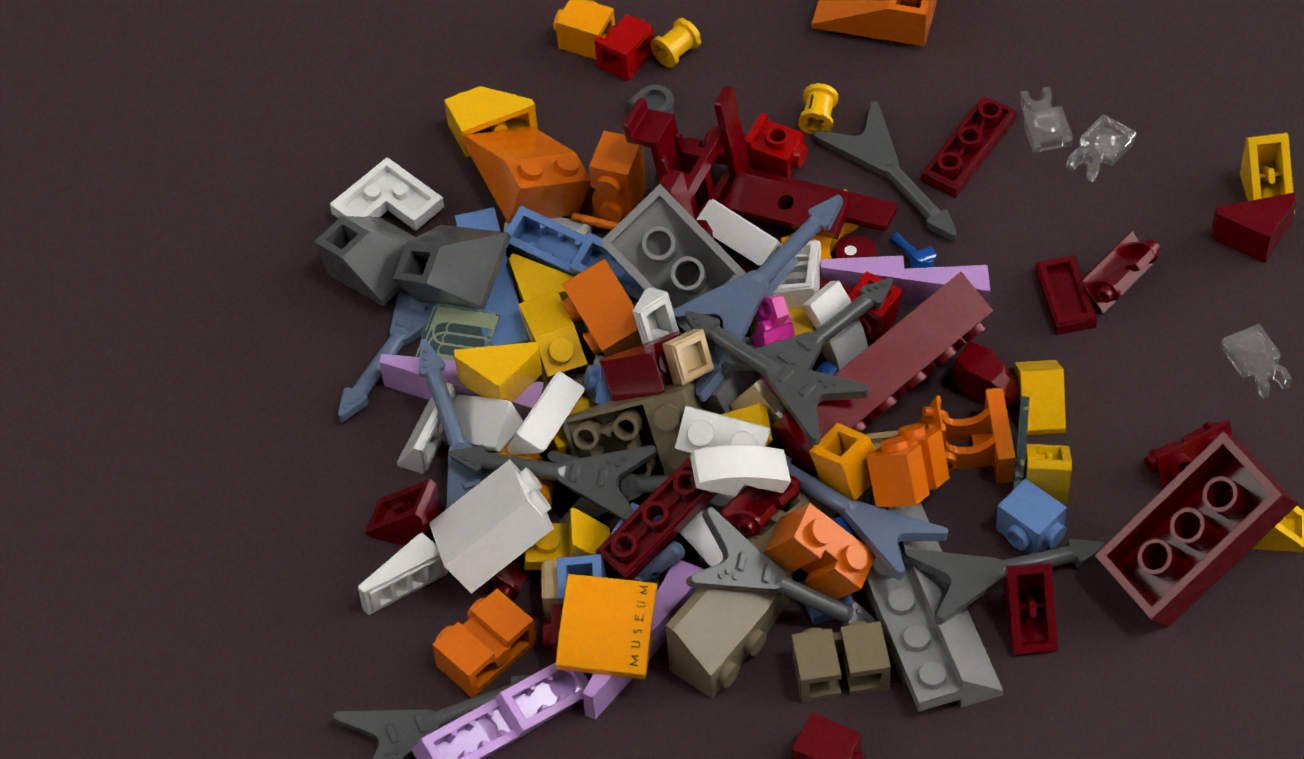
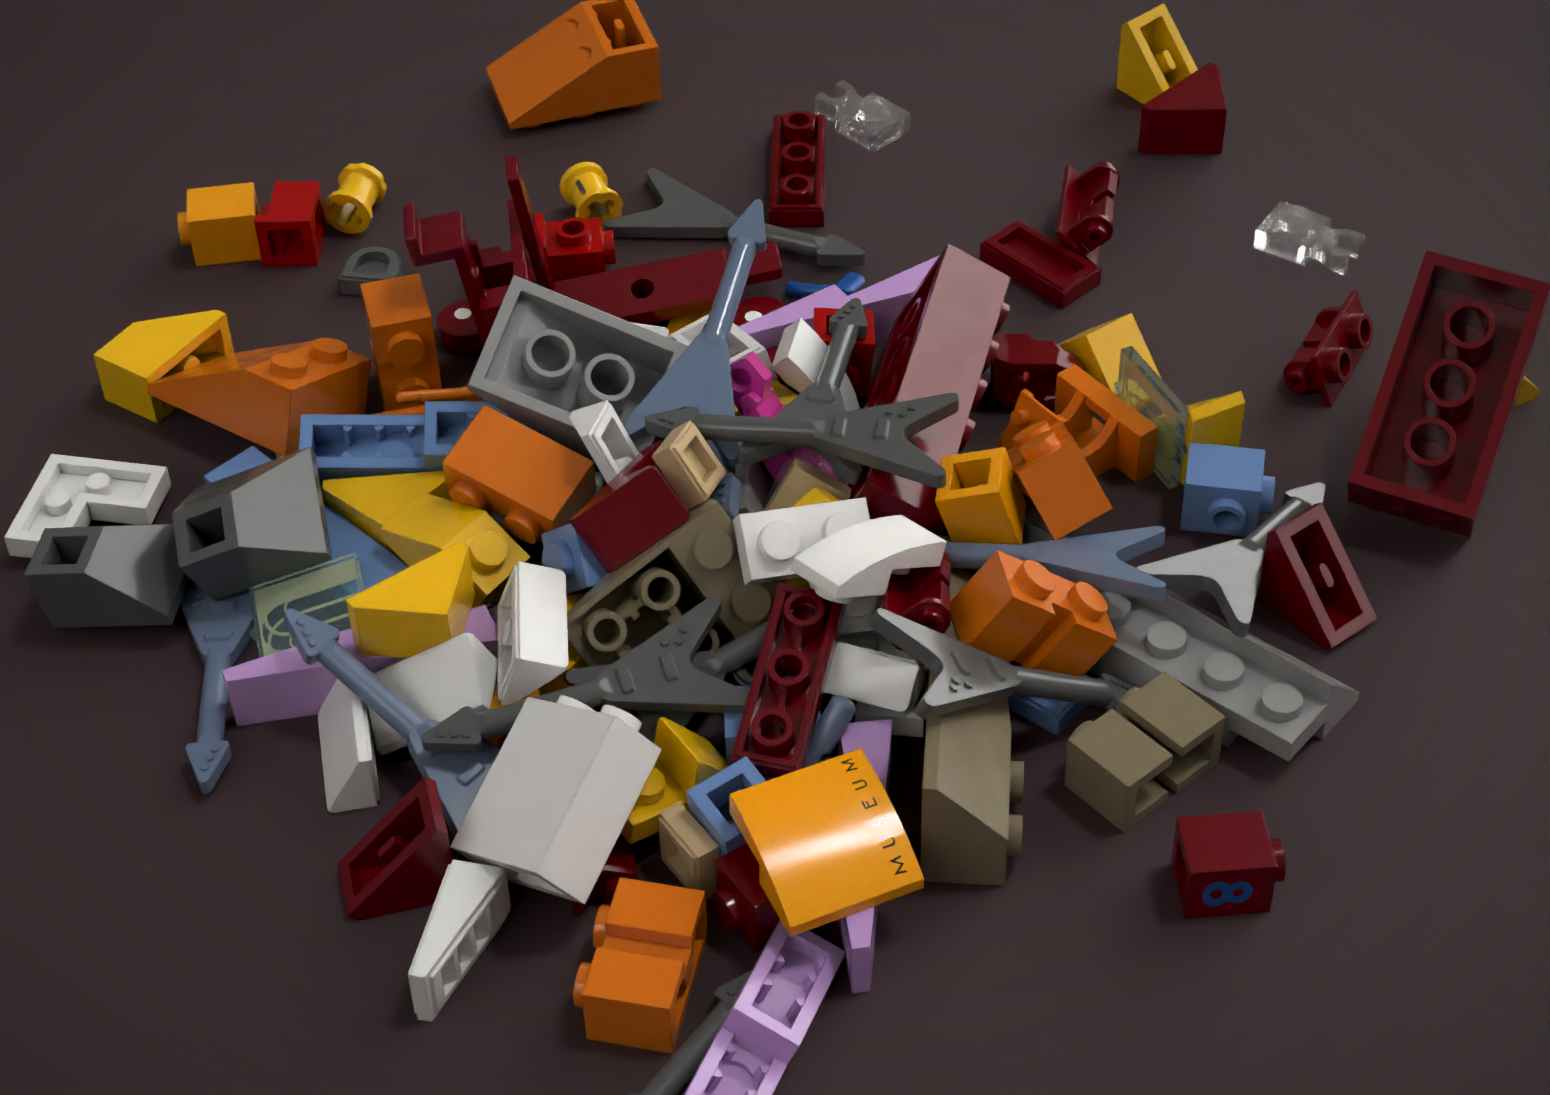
camera: 35 degrees left, 10 degrees down
(1101, 143) = (952, 110): clear plate -> none

